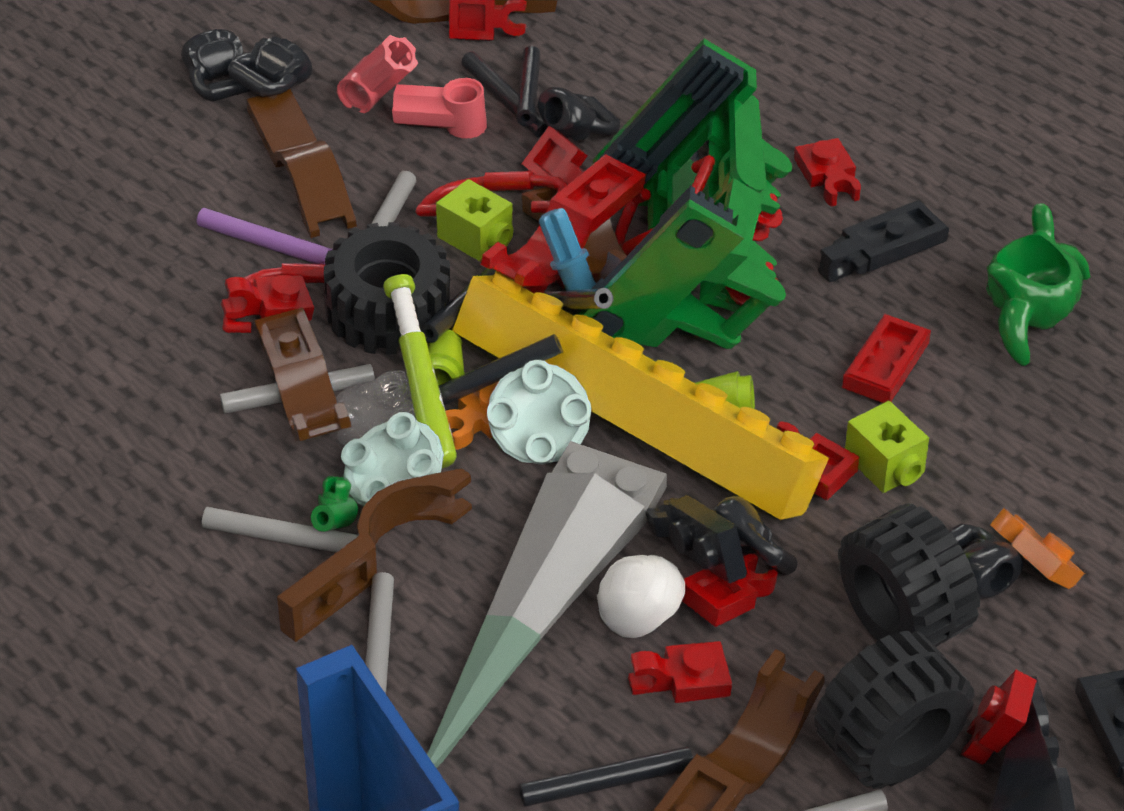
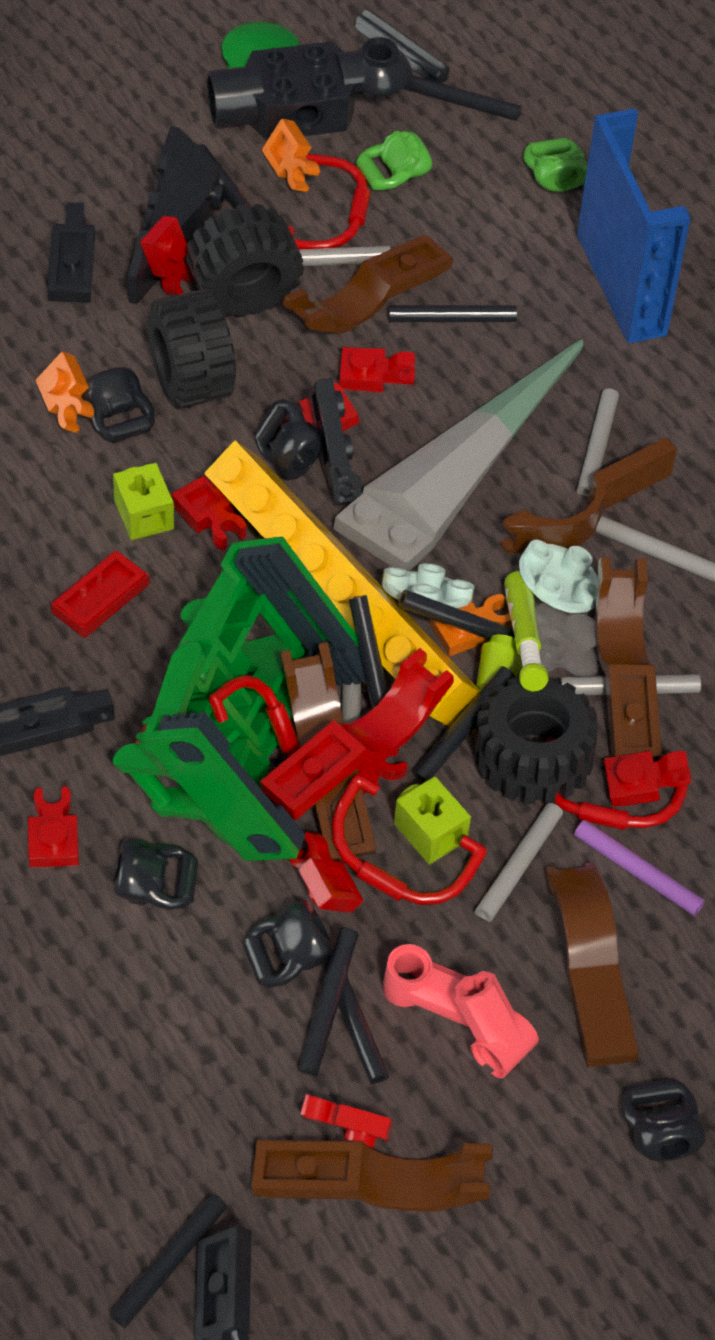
camera: 170 degrees left, 10 degrees up
(275, 67) = (598, 1092): black piece -> none
(335, 505) = (615, 543): green arm -> none
(567, 254) = (364, 696): dark azure axle -> none
(639, 594) = (390, 417): white piece -> none

